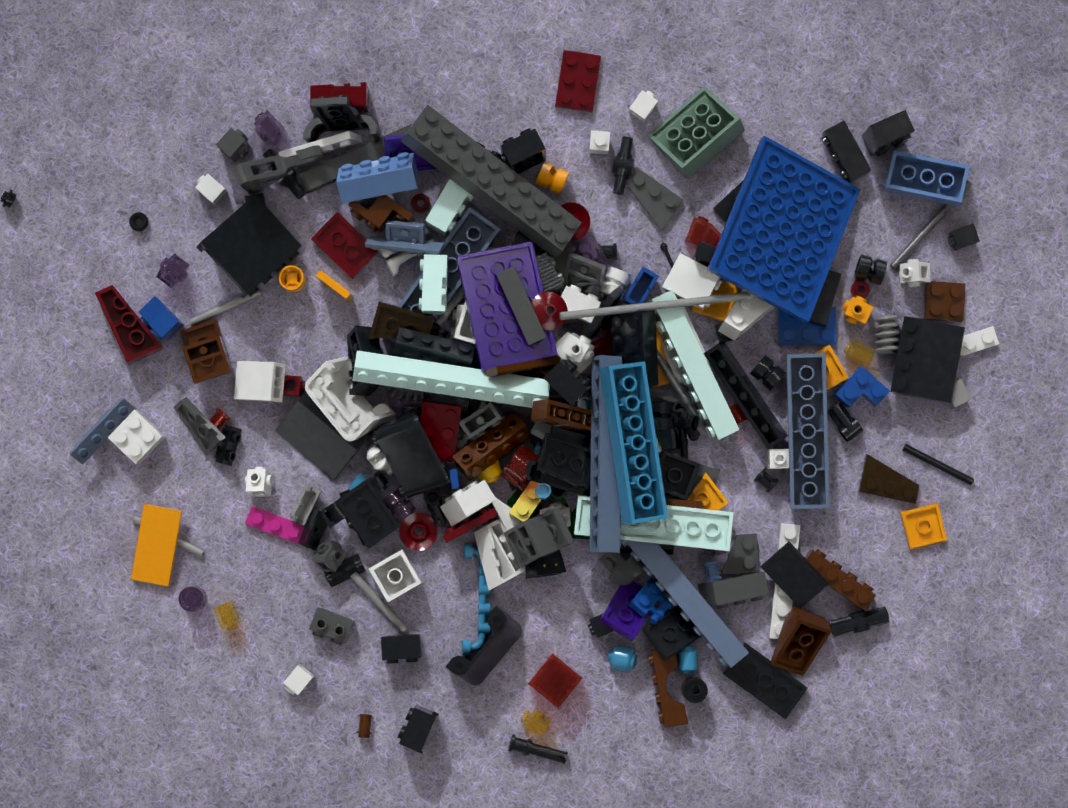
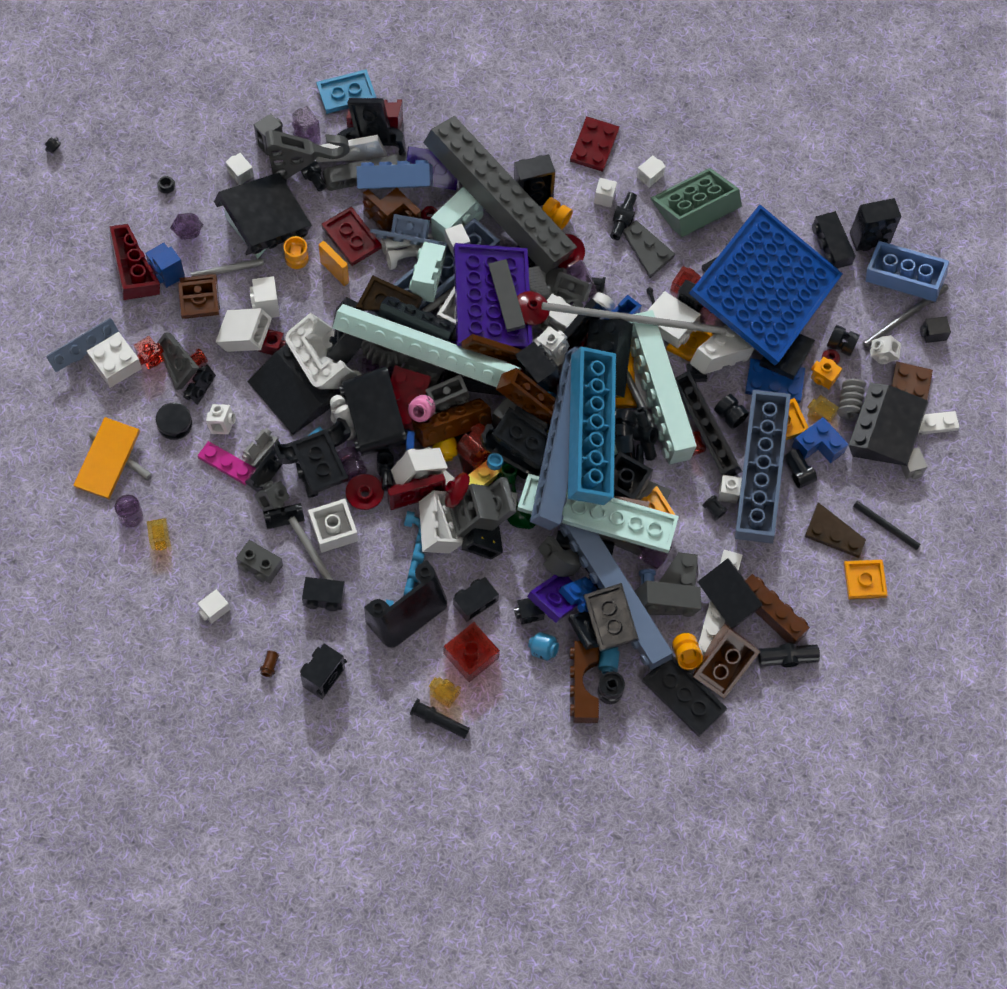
camera: 10 degrees right, 20 degrees down
(170, 423) = (149, 352): none -> clear red brick
(212, 491) = (173, 421): none -> black head
(271, 336) = (264, 296): none -> white brick
(302, 69) = (337, 90): none -> dark azure plate
(457, 241) = (456, 235): none -> white brick
(459, 445) = (421, 408): none -> bright pink head
(510, 523) = (456, 490): none -> dark red dish
(548, 622) = (475, 598): none -> black brick
(684, 628) = (611, 617): none -> black tile
(761, 640) = (687, 651): none -> light orange wheel

